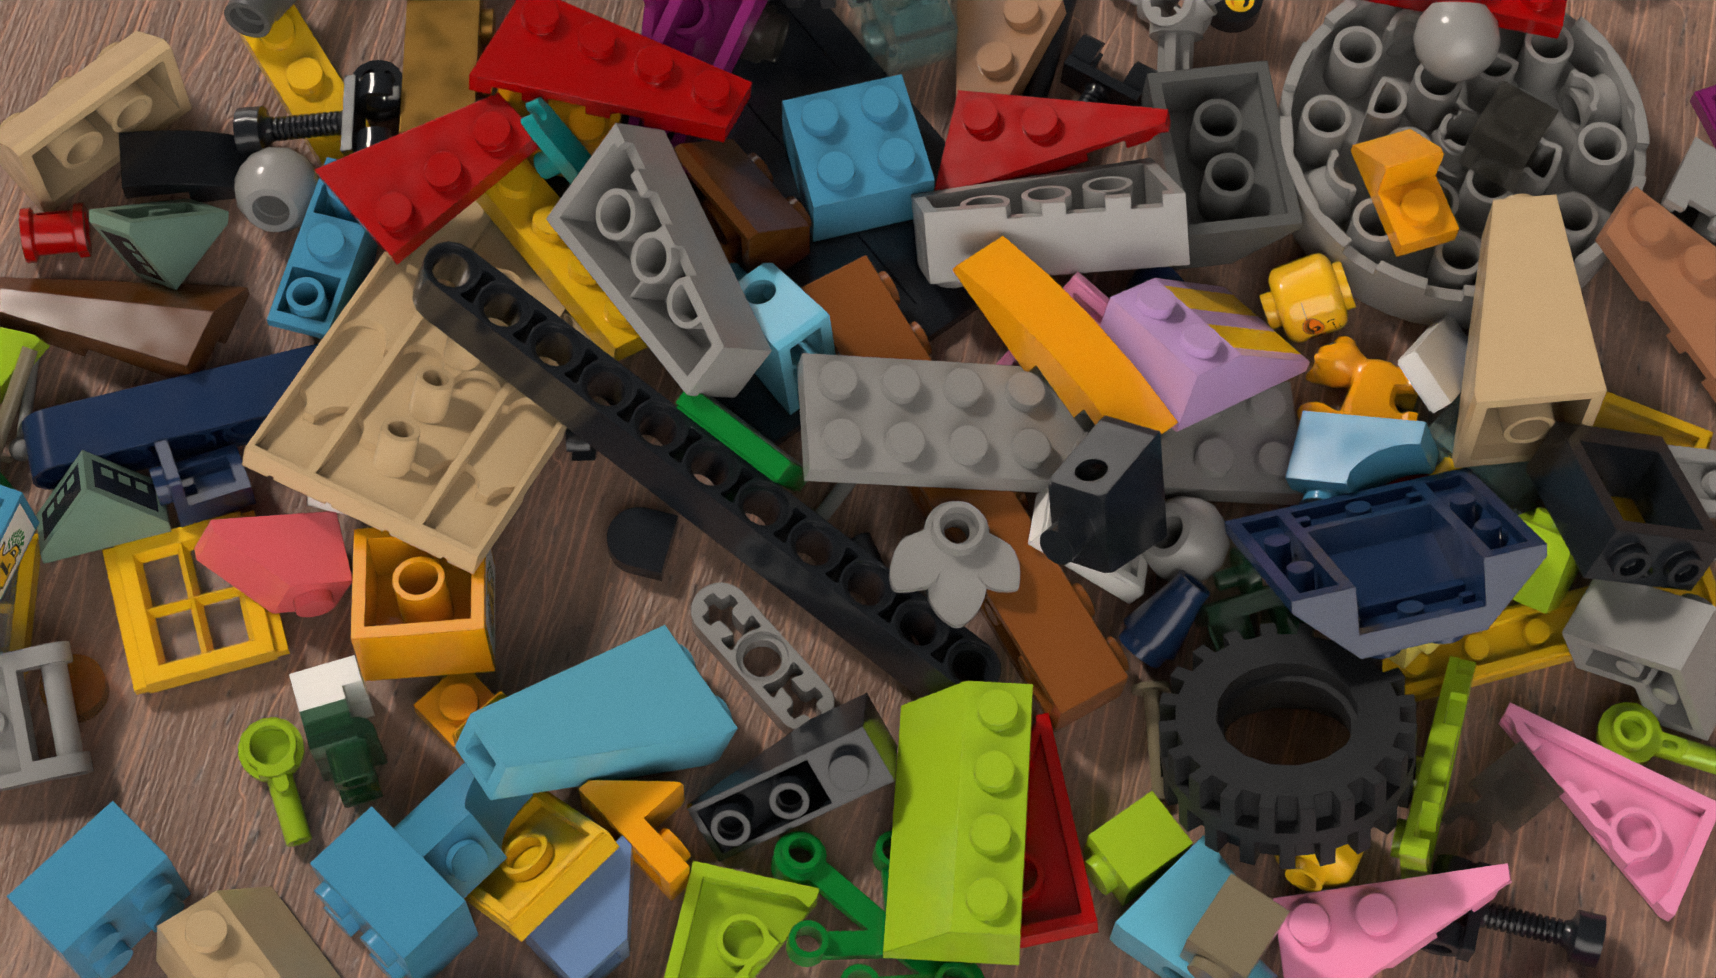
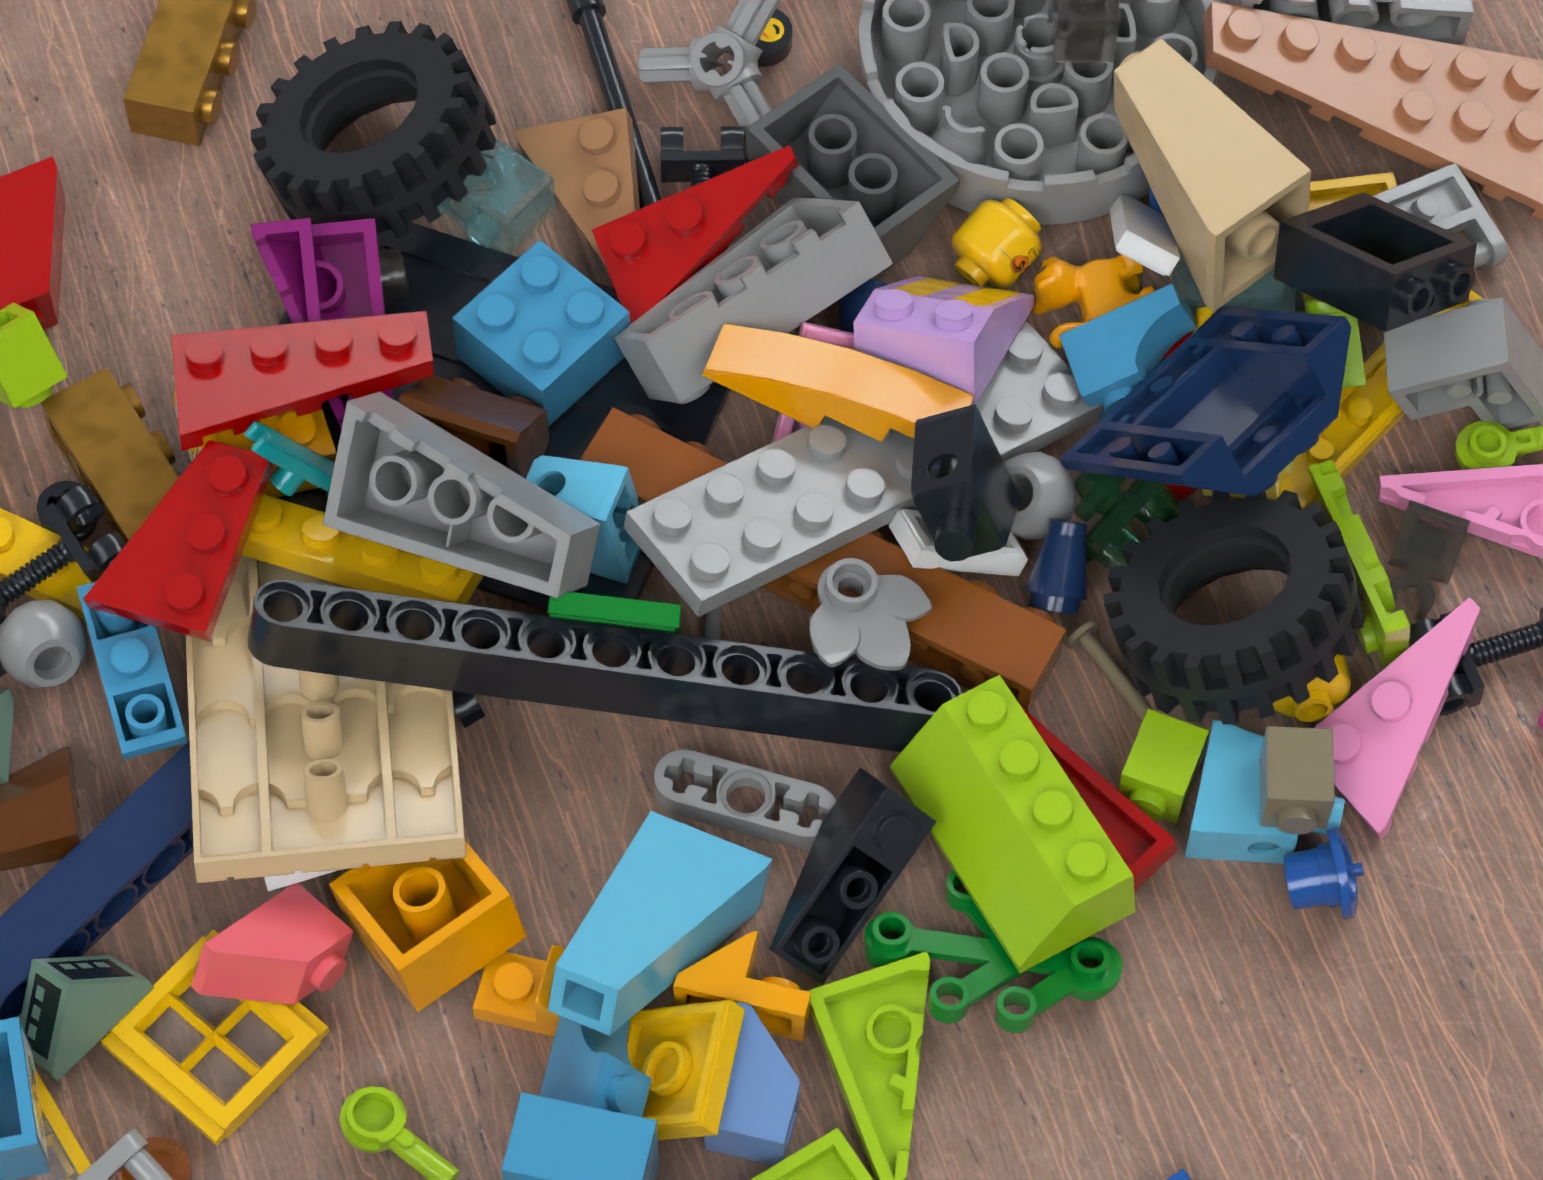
camera: 30 degrees left, 5 degrees down
(202, 484) = (154, 930): dark blue bracket -> none
(341, 739) = (429, 1064): clear green hips -> none
(642, 541) = (572, 761): black tile -> none
(1405, 190) = (1026, 106): light orange slope -> none

